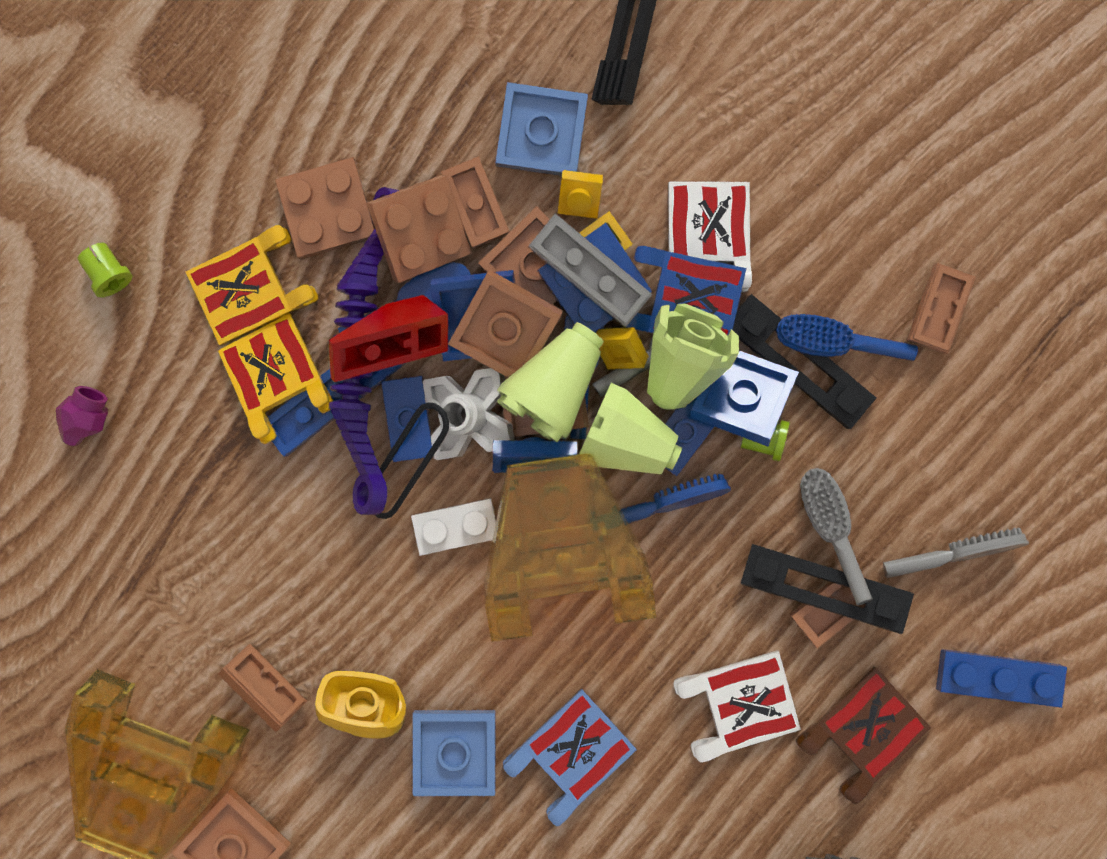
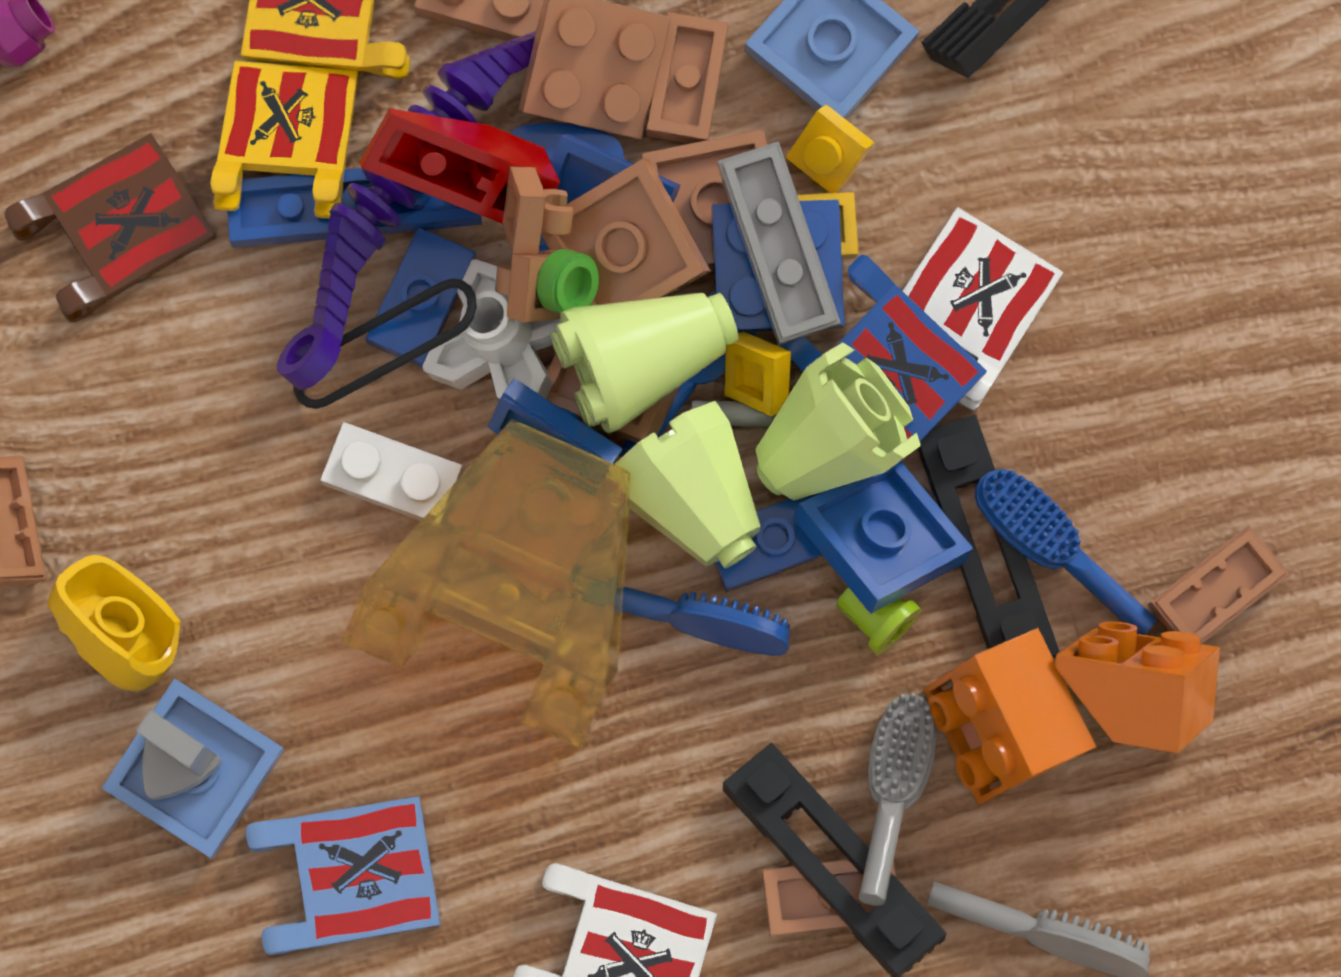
camera: 30 degrees right, 10 degrees down
(216, 478) = (123, 220): none -> flag
(441, 759) = (172, 759): none -> light grey tile
(444, 342) = (533, 210): none -> nougat tile
(472, 380) = (521, 284): none -> nougat tile
(488, 369) = (567, 281): none -> bright green tile
(875, 454) = (1007, 716): none -> orange slope
(937, 392) = (1143, 686): none -> orange slope

